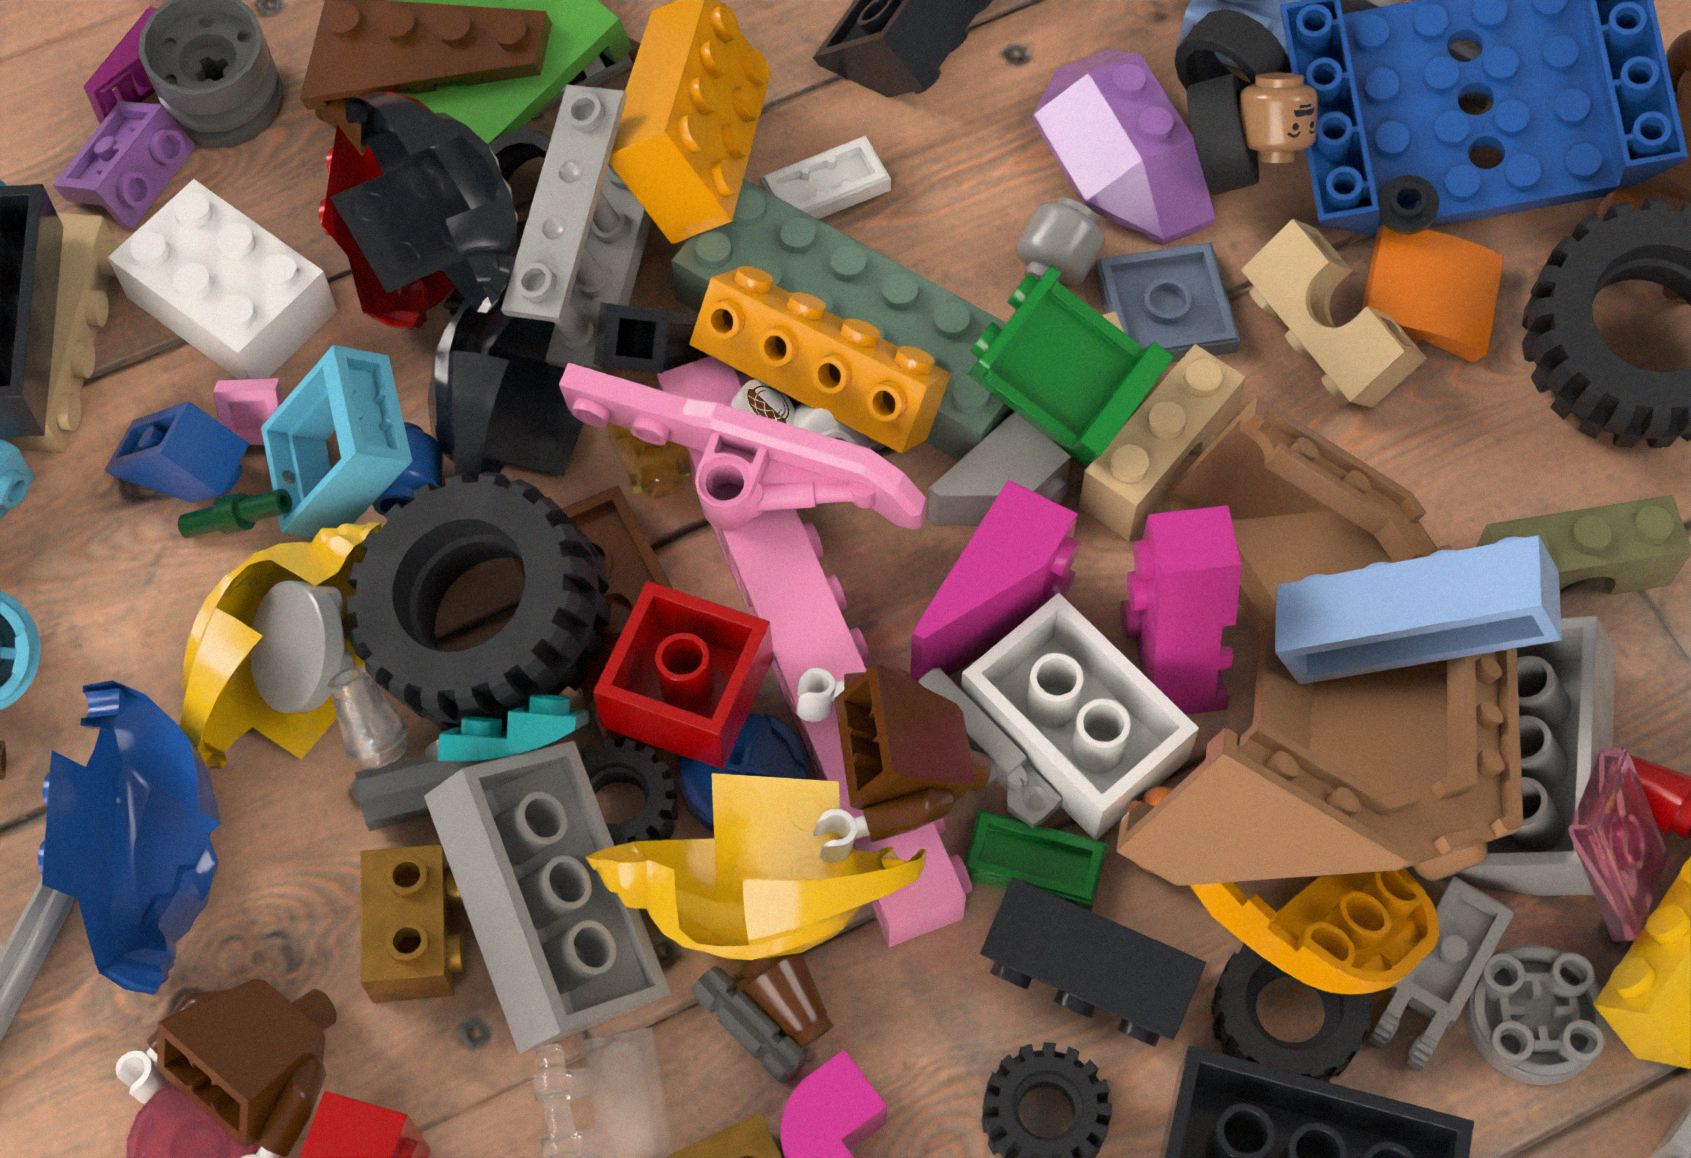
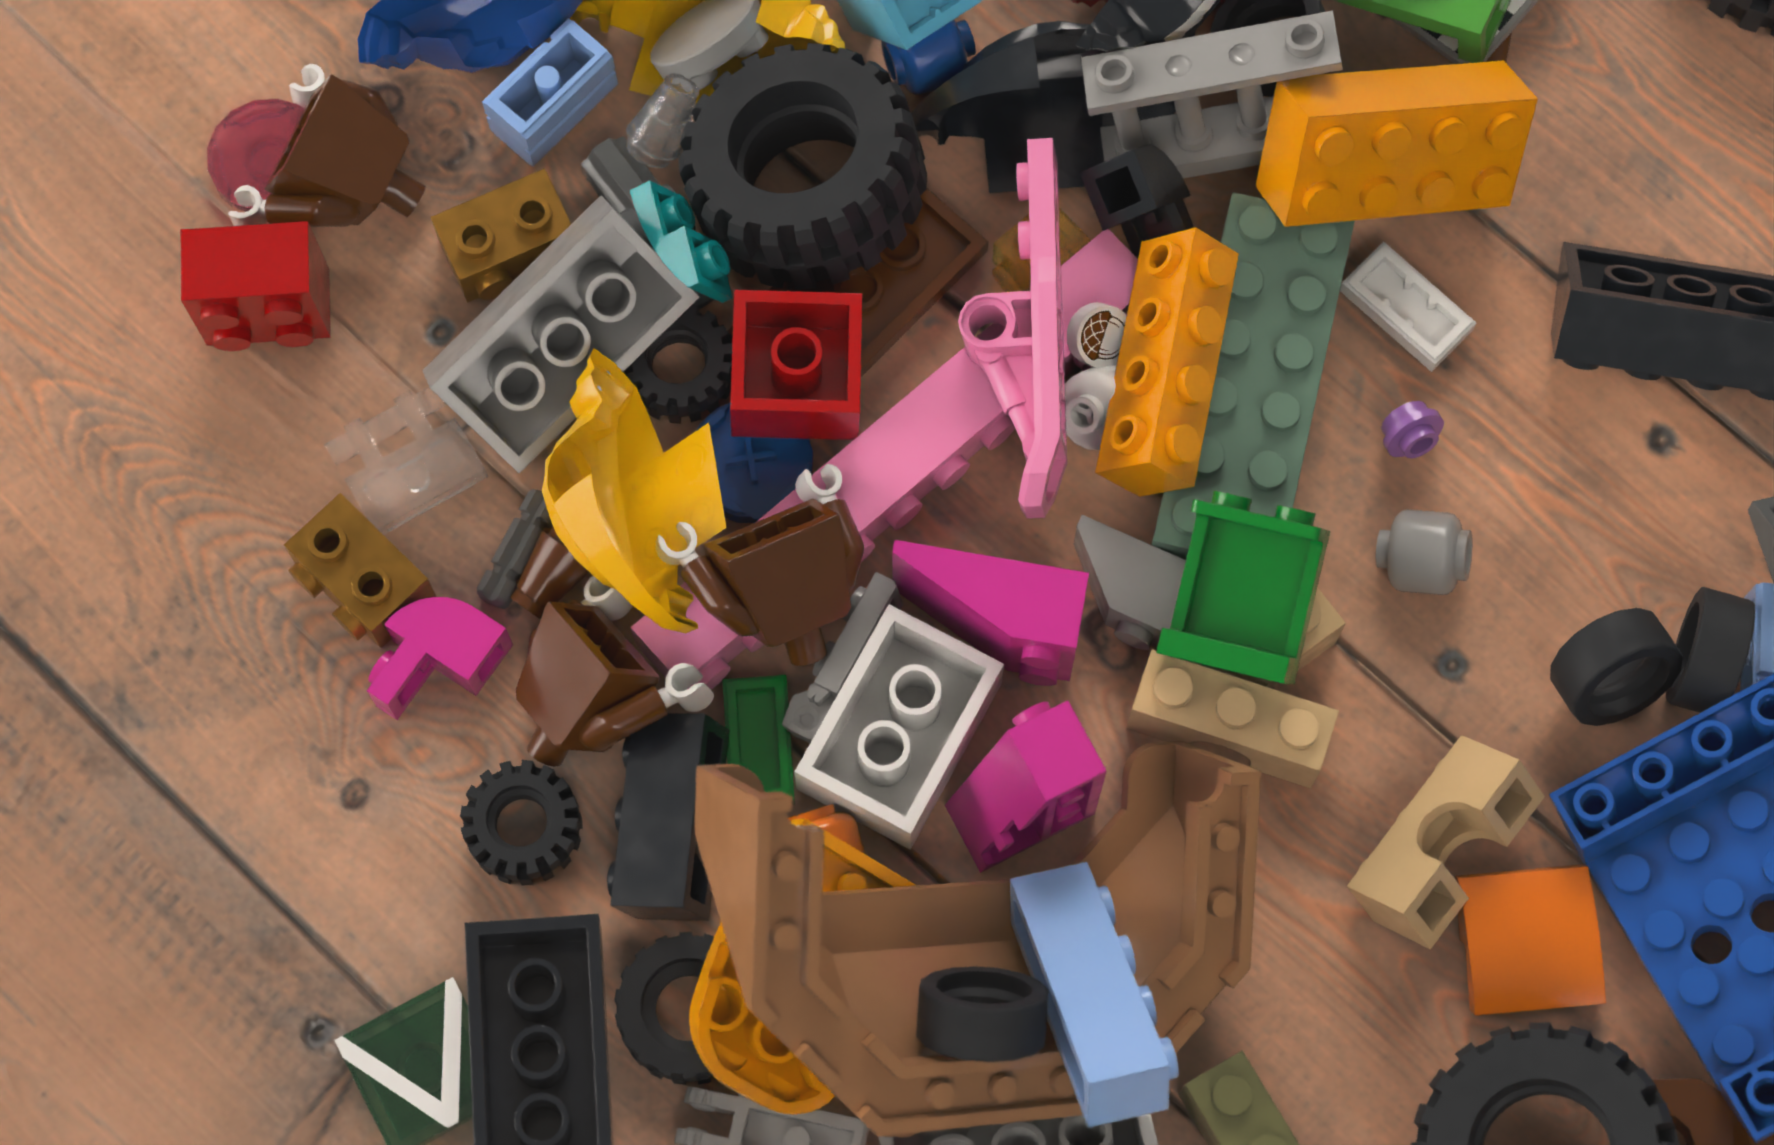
camera: 70 degrees right, 10 degrees up
(276, 823) = (550, 92): none -> light blue brick
(932, 985) = (591, 683): none -> reddish brown torso
(943, 217) = (1411, 430): none -> medium lavender plate
(1125, 146) = (1573, 564): medium lavender wedge -> none
(1170, 299) = (1406, 681): sand blue tile -> none
(1279, 116) = (1640, 708): medium nougat head -> none
(1405, 220) = (1611, 897): black plate -> none
(1418, 702) = (982, 1014): none -> black tyre

